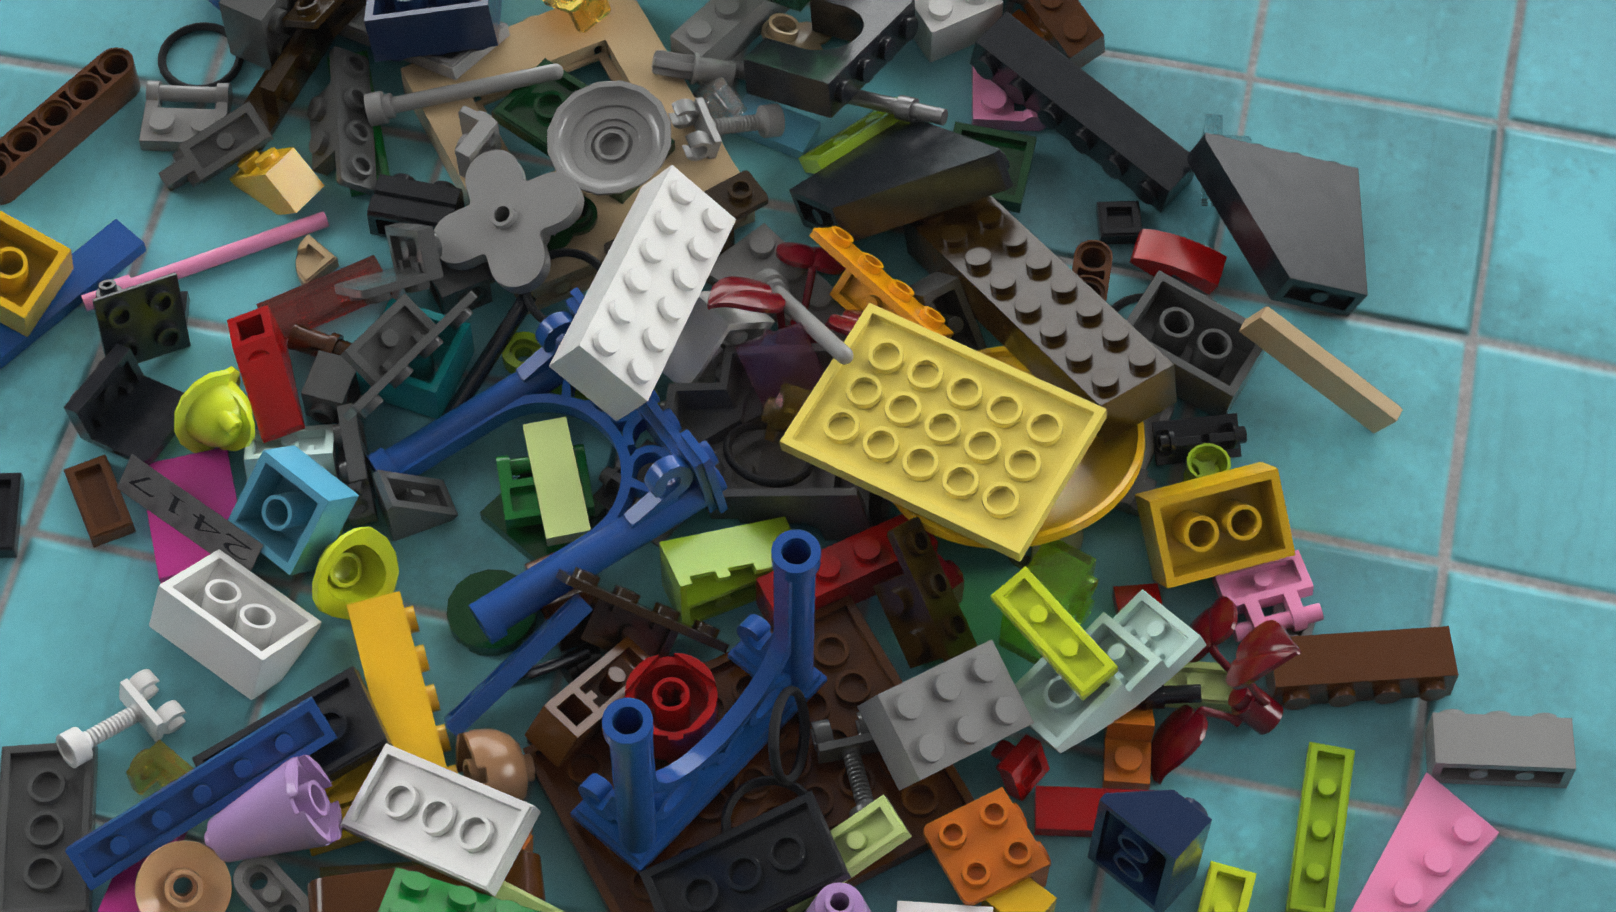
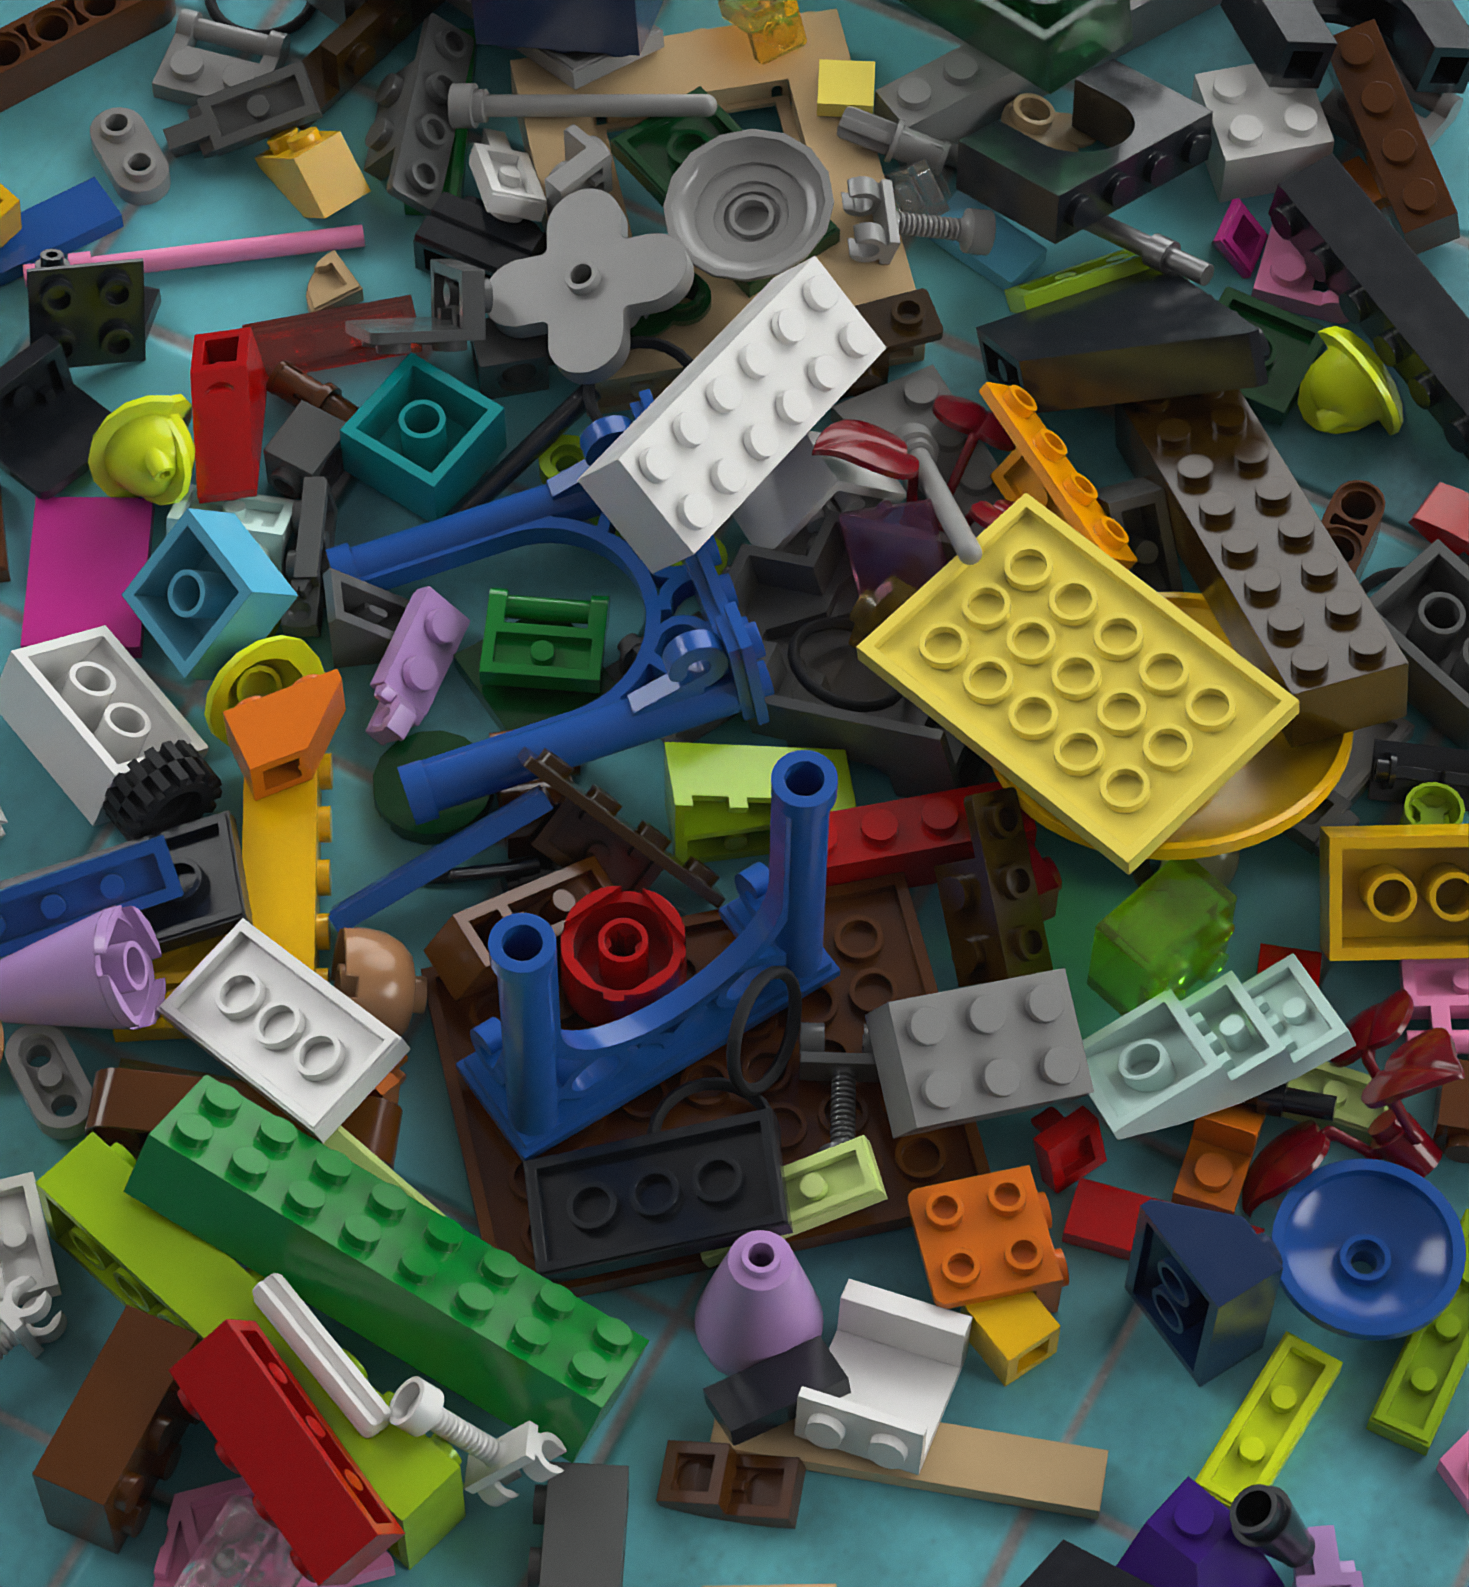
camera: 15 degrees right, 0 degrees up
(134, 194) = (126, 152): none -> light grey plate
(187, 513) = (77, 571): flat silver sticker -> none
(298, 663) = (162, 791): none -> black tyre
(377, 600) = (285, 733): none -> orange slope
(393, 342) = (394, 409): dark grey bracket -> none
(422, 155) = (506, 179): none -> white hinge
(454, 526) = (415, 664): none -> lavender hinge
(556, 480) = (558, 634): yellowish green tile -> none
(648, 36) = (843, 85): none -> light yellow tile
(953, 85) = (1240, 238): none -> dark pink slope
(1054, 633) = (1150, 980): neon yellow tile -> none
(1060, 175) = (1349, 387): none -> neon yellow helmet
(1118, 221) = (1411, 466): black tile -> none
(1261, 765) = (1376, 1217): none -> blue dish

